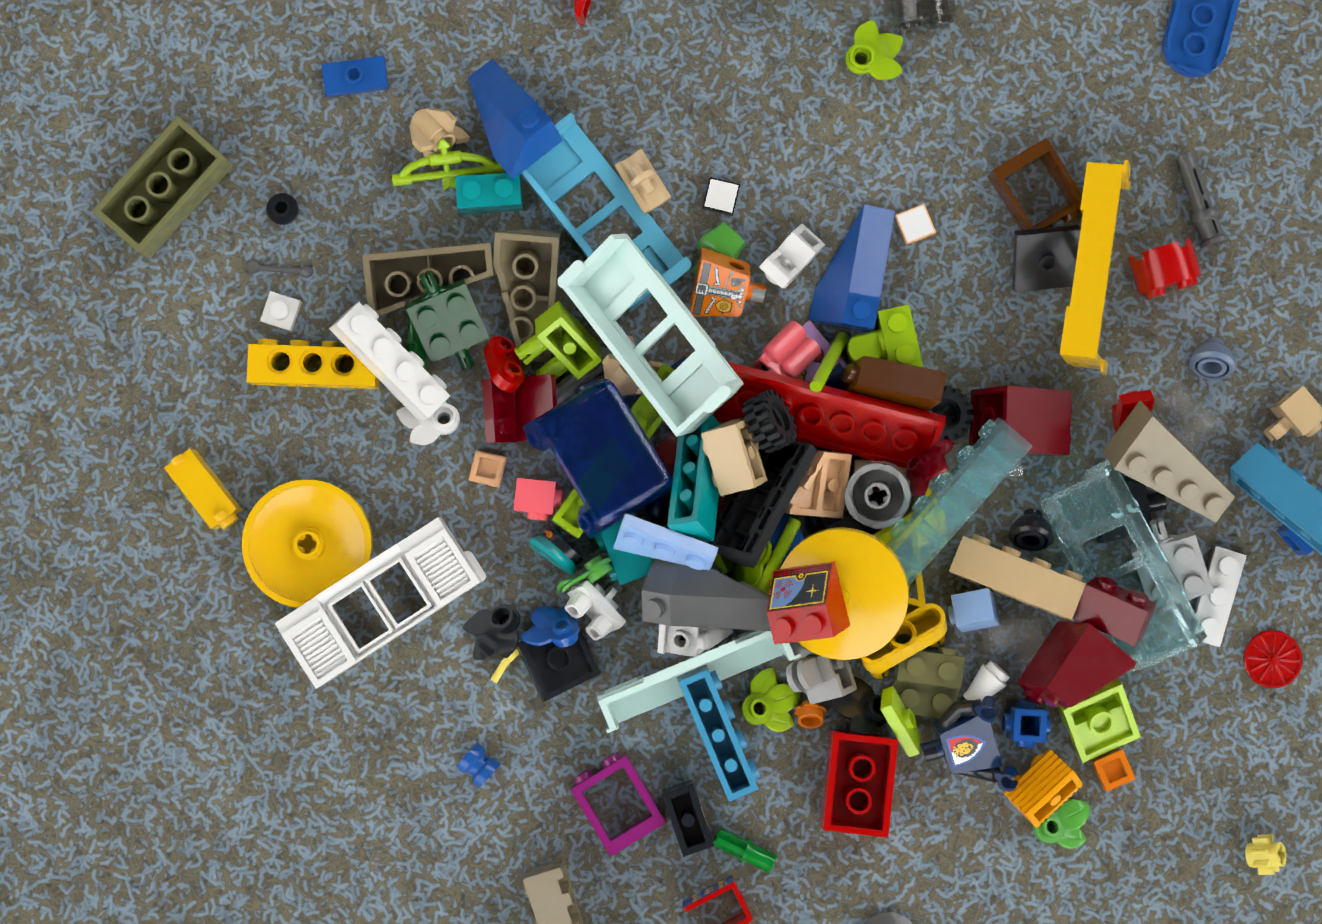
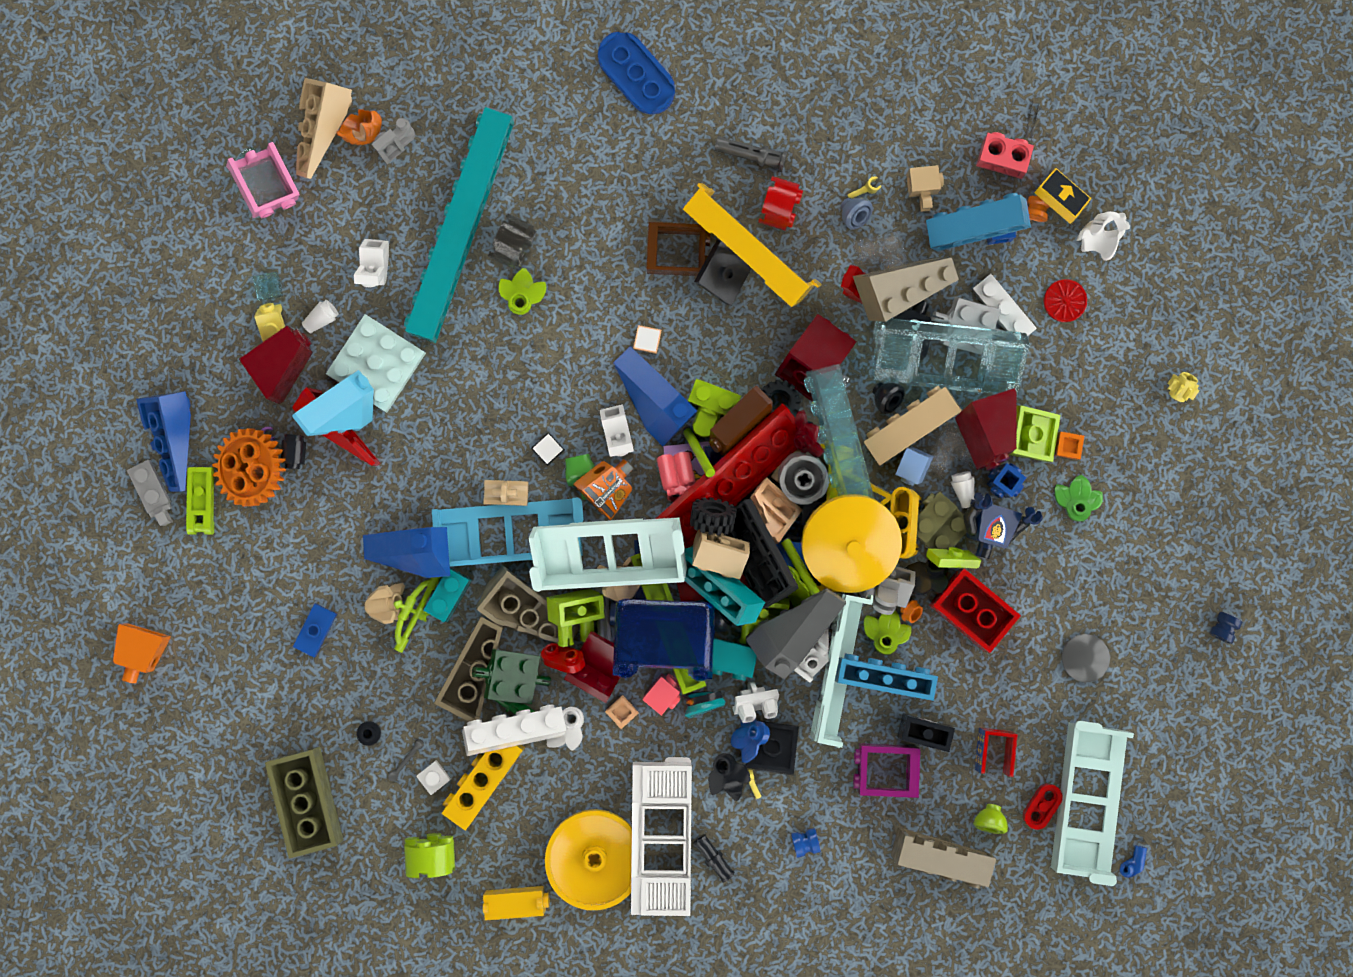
camera: 50 degrees left, 0 degrees up
(193, 361) = (429, 856): none -> lime brick
(394, 675) = (713, 858): none -> black pin
(595, 569) = (732, 686): bright green plate -> none
(664, 544) = (745, 635): light blue wing -> none
(744, 850) = (969, 709): green axle -> none
(806, 604) = (844, 571): slope -> none
(1043, 787) = (1052, 496): light orange brick -> none
(1115, 610) = (973, 379): brick -> none
(1246, 354) = (867, 188): none -> light yellow hand

